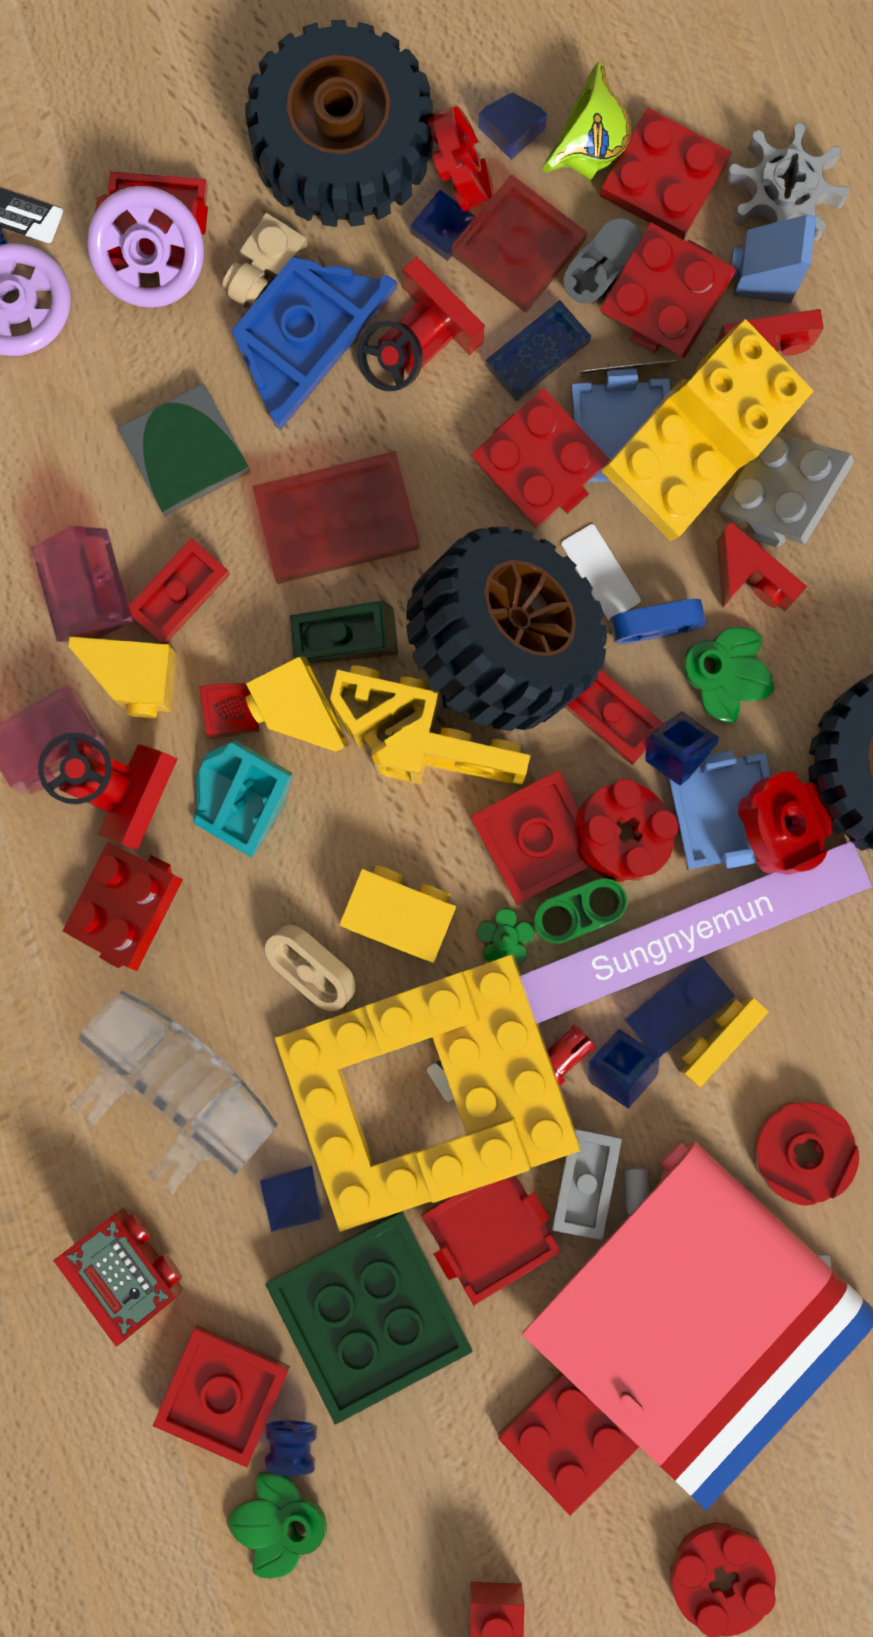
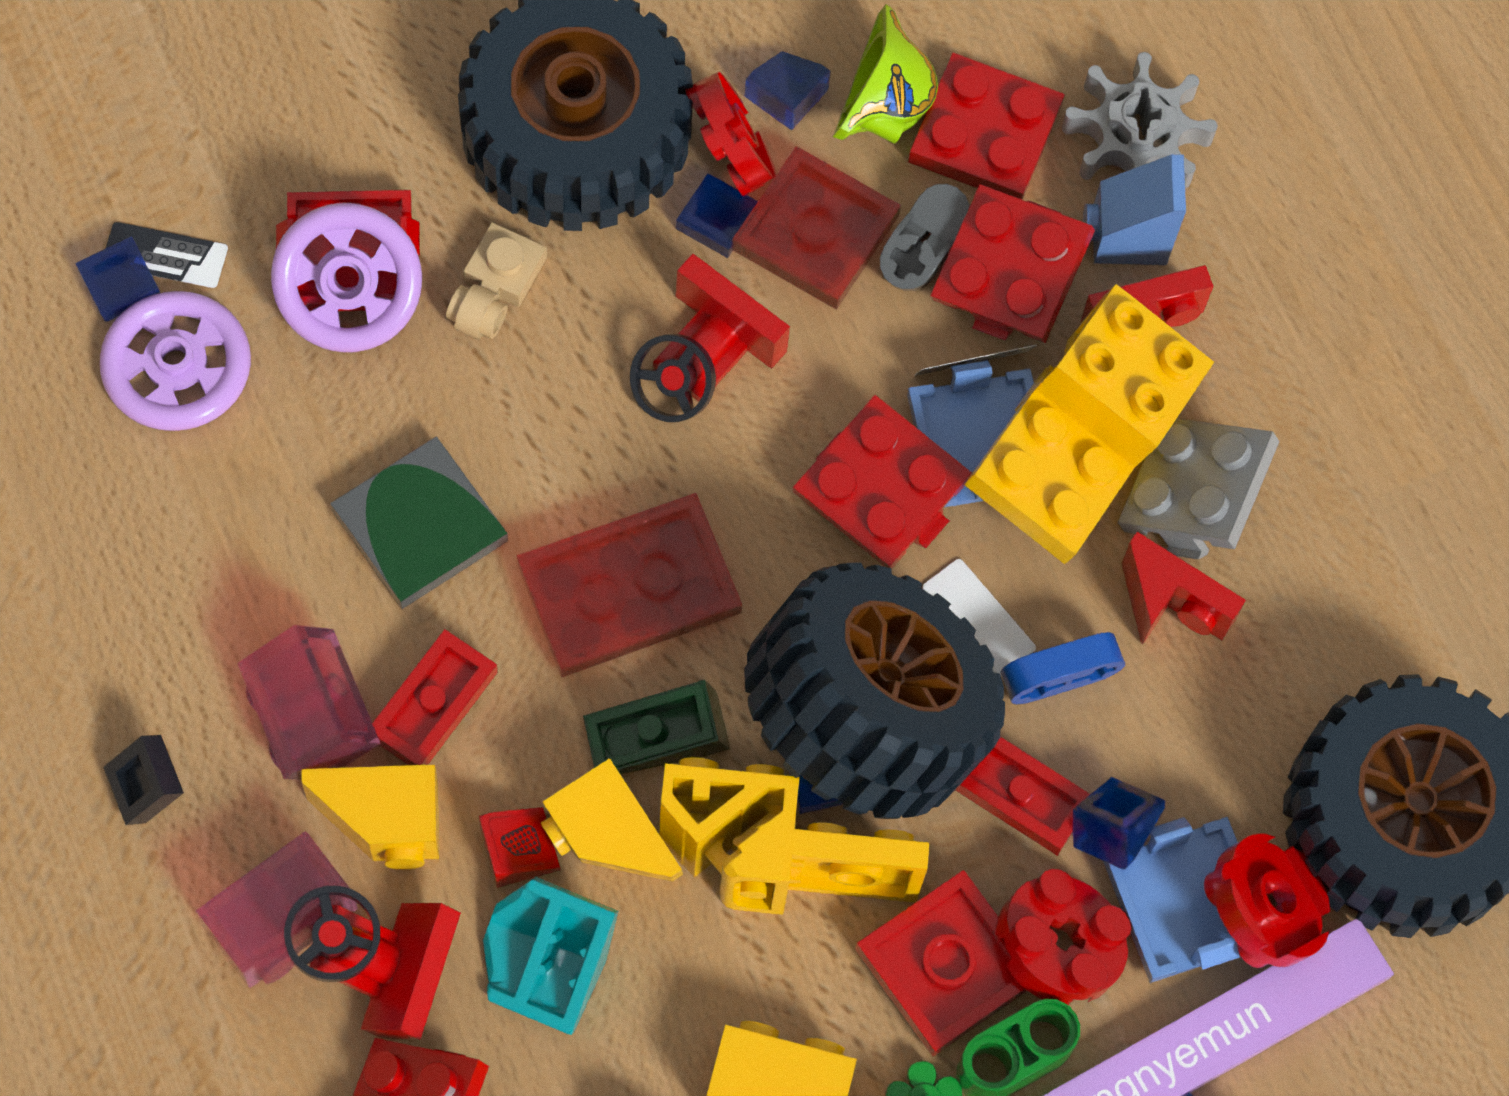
camera: 15 degrees left, 15 degrees down
(304, 329) = (557, 358): blue wing -> none
(538, 350) = (858, 353): clear blue tile -> none
(735, 674) = (1171, 726): green plate -> none

